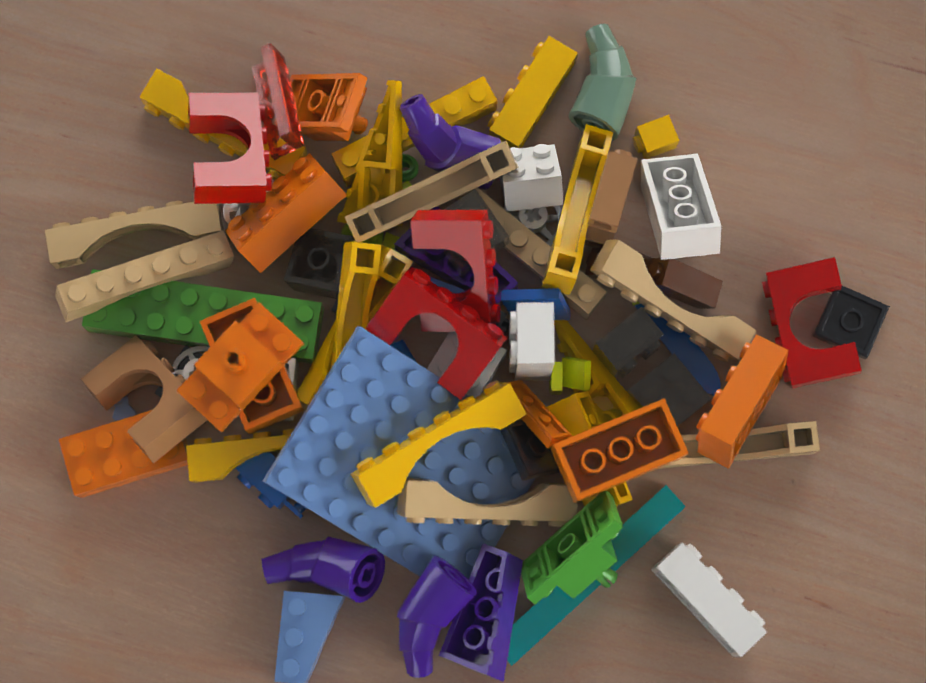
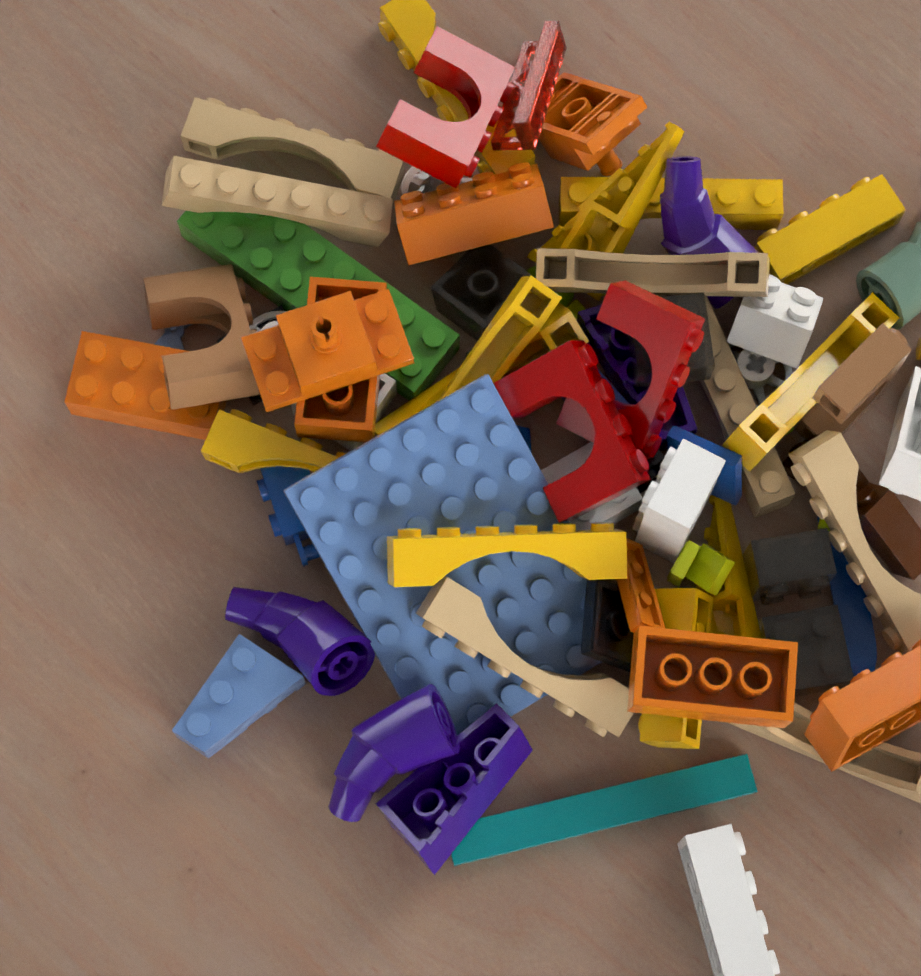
camera: 25 degrees right, 5 degrees down
(412, 164) = (646, 240): bright green plate -> none
(576, 552) = (599, 771): bright green brick -> none

